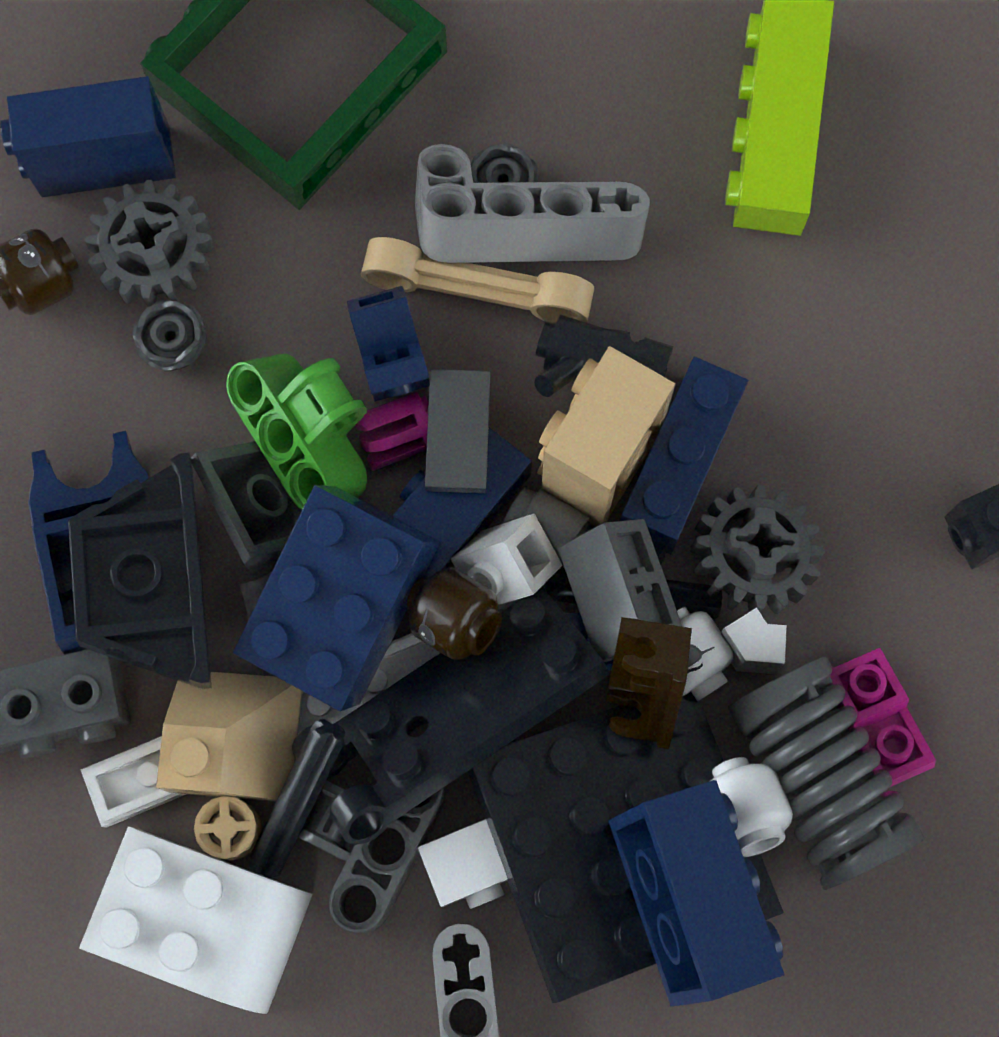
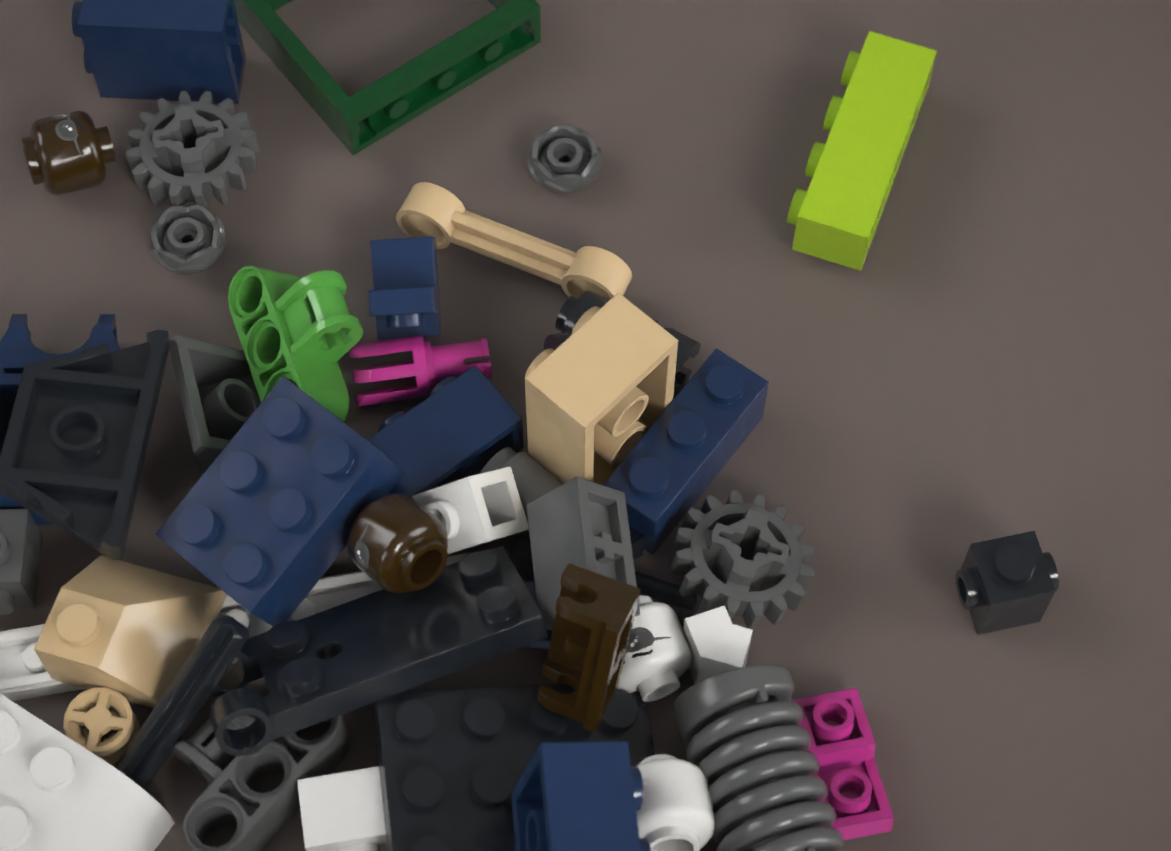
camera: 10 degrees right, 15 degrees down
(458, 431) = (451, 372): dark grey tile -> none
(522, 219) = (576, 193): light grey beam -> none

